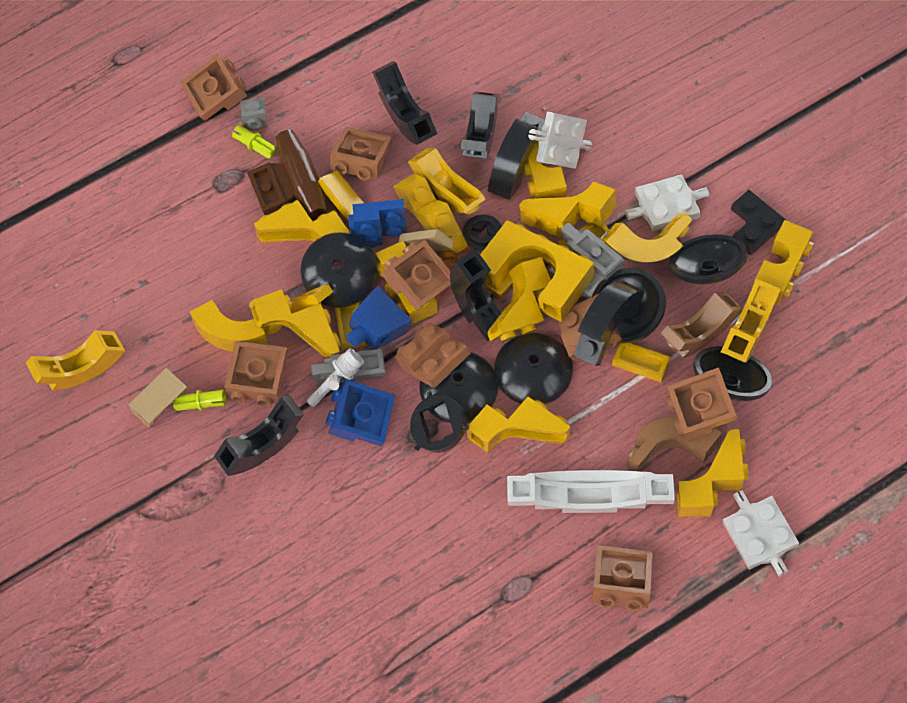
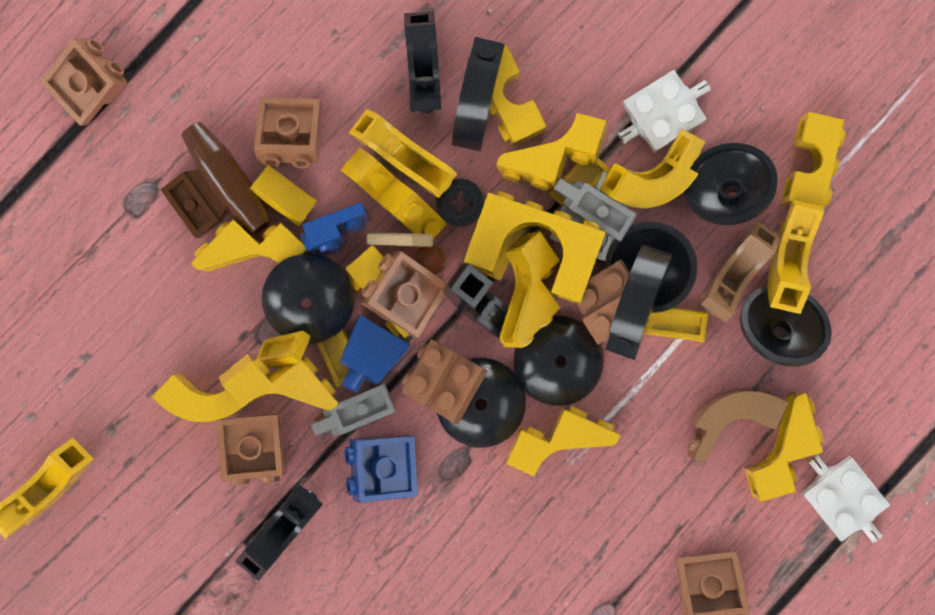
camera: 20 degrees left, 25 degrees up
(157, 397) = (150, 505): tan hinge -> none
(200, 400) = (198, 493): neon yellow axle -> none
(254, 113) = (143, 103): light grey bracket -> none
(254, 142) = (156, 143): neon yellow axle -> none
(346, 366) = (350, 428): white piece -> none
(404, 111) = (323, 56): black arch -> none
(420, 431) = (453, 469): black piece -> none
(560, 140) = (526, 66): white plate -> none
(590, 490) = (659, 499): white piece -> none
(700, 404) = (765, 386): nougat plate -> none
(761, 221) = (778, 112): black plate -> none

